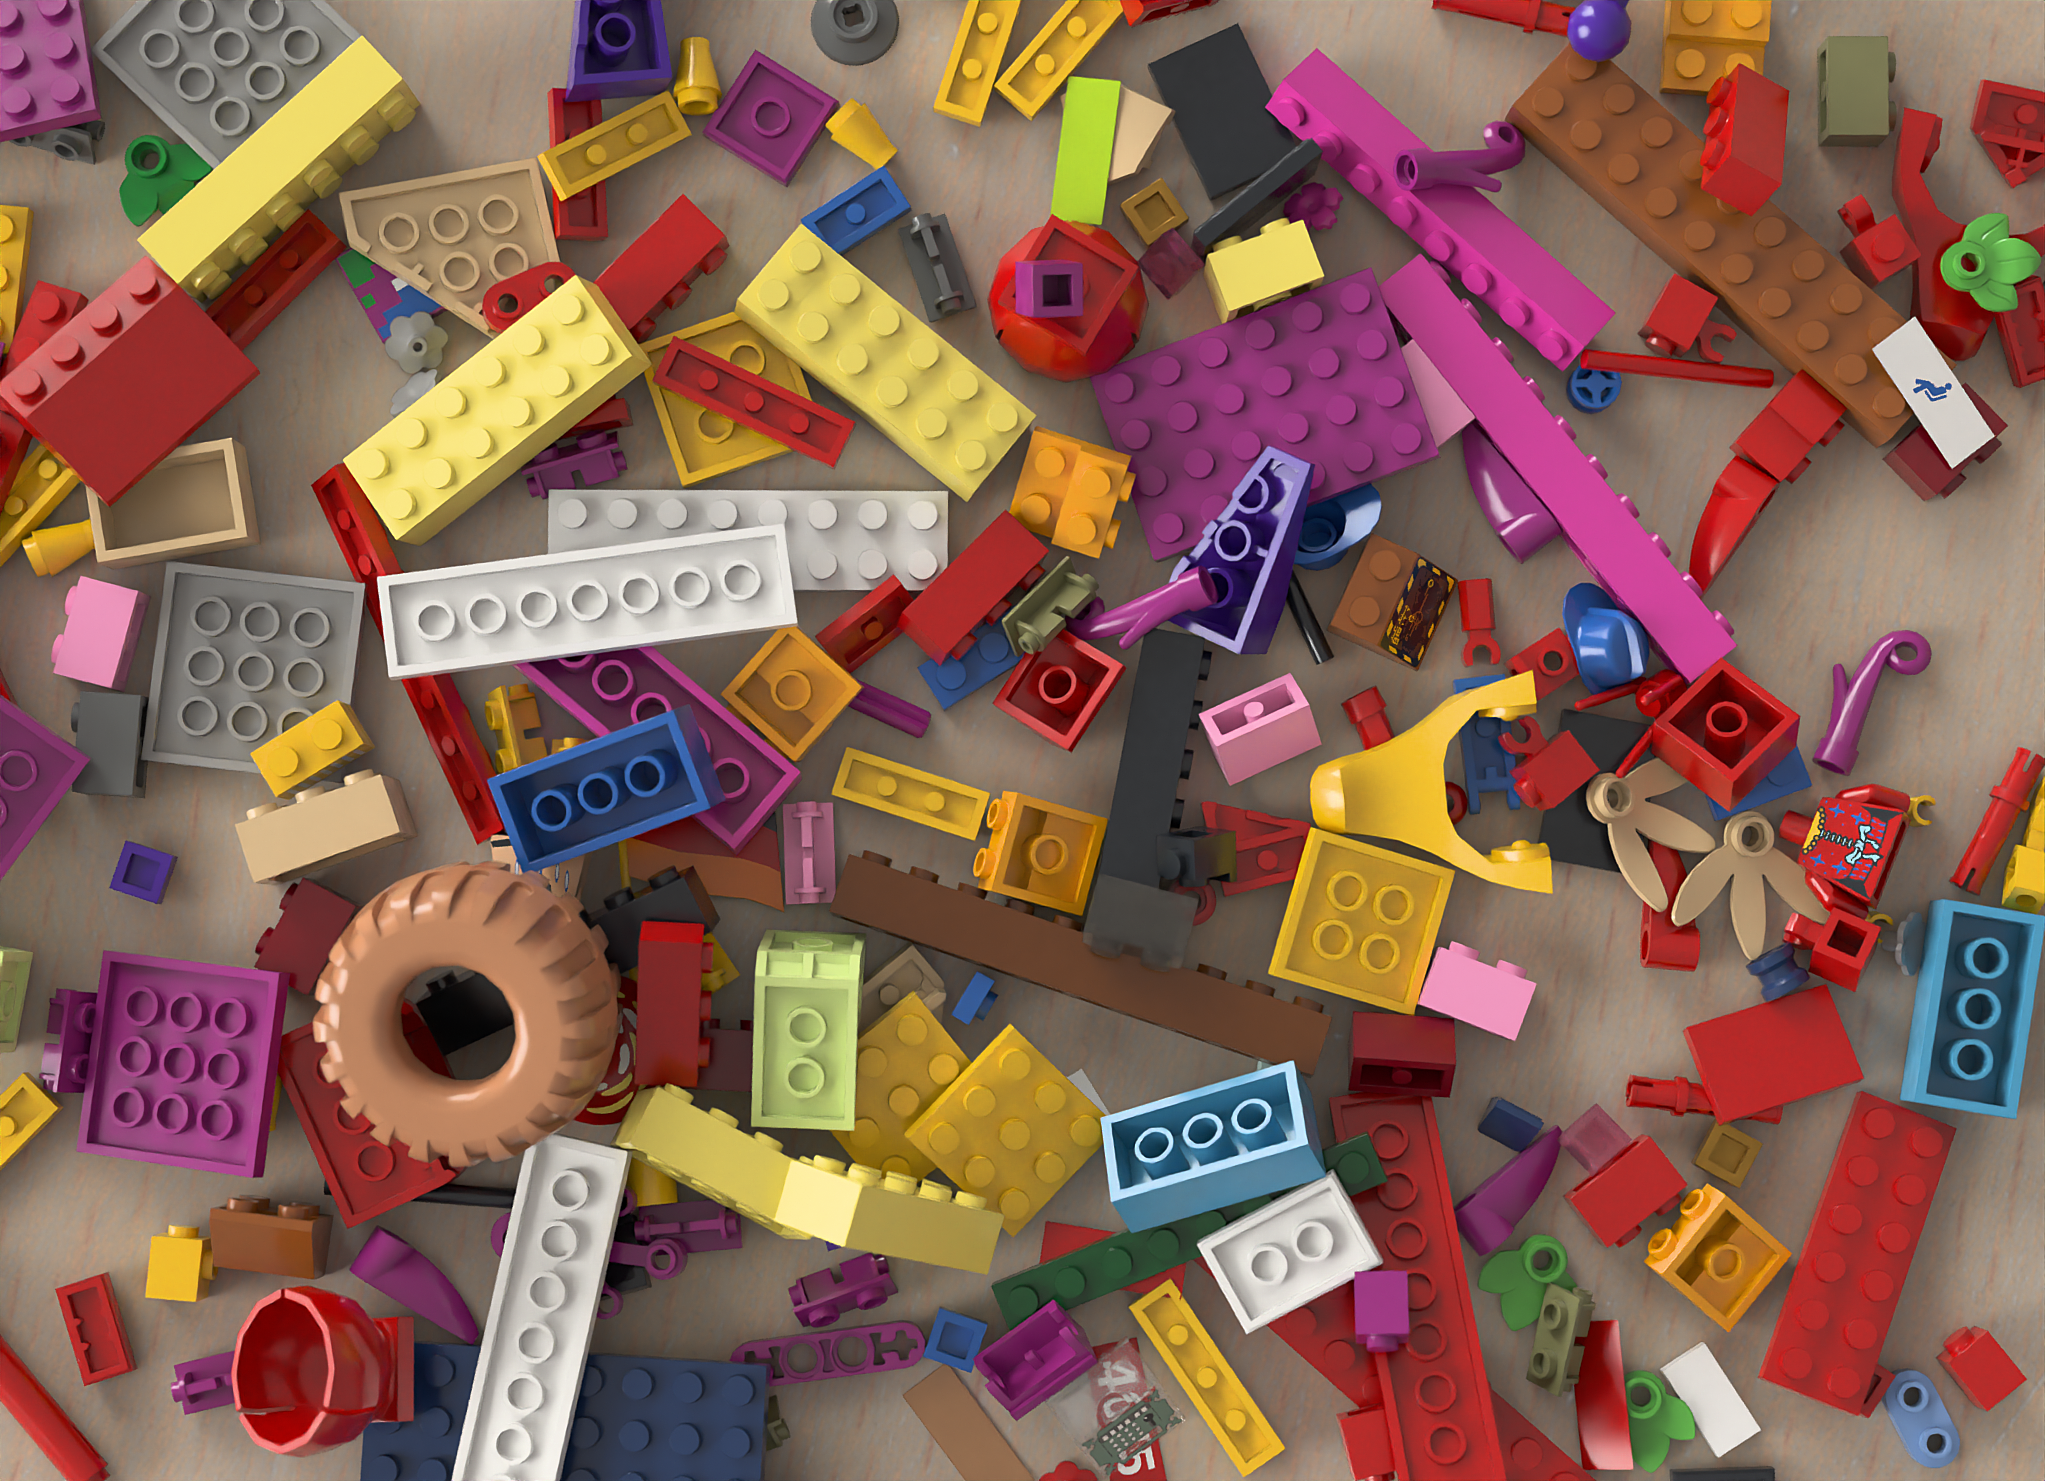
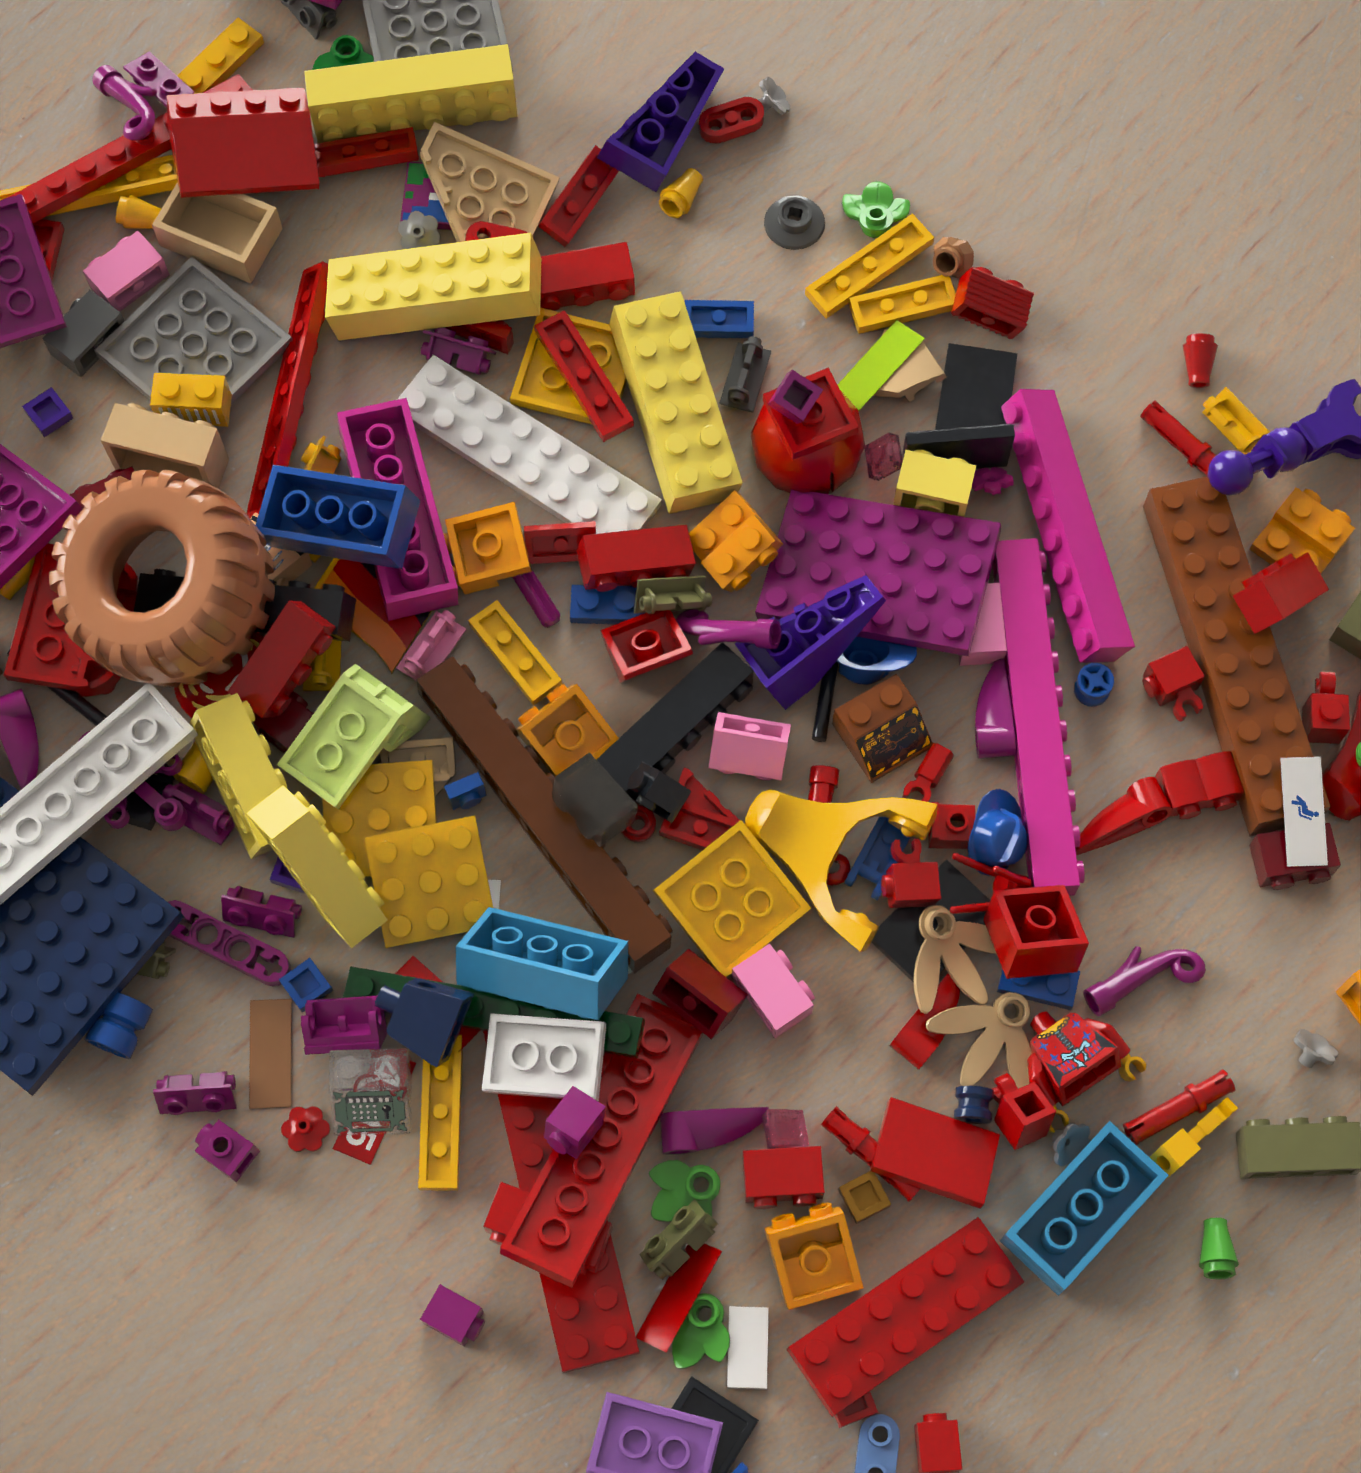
camera: 30 degrees right, 15 degrees down
(586, 601) = (406, 413): white plate -> none
(614, 145) = (607, 195): yellow plate -> none
(771, 118) = (708, 241): magenta tile -> none
(861, 134) = (753, 277): yellow cone -> none
(1125, 1295) = (425, 1017): none -> dark blue torso
(1153, 212) = (894, 420): pearl gold plate -> none
(1422, 168) = (1069, 485): magenta plant -> none
(1509, 1124) = (739, 1085): dark blue slope -> none
(1676, 369) = (1152, 704): red bar -> none

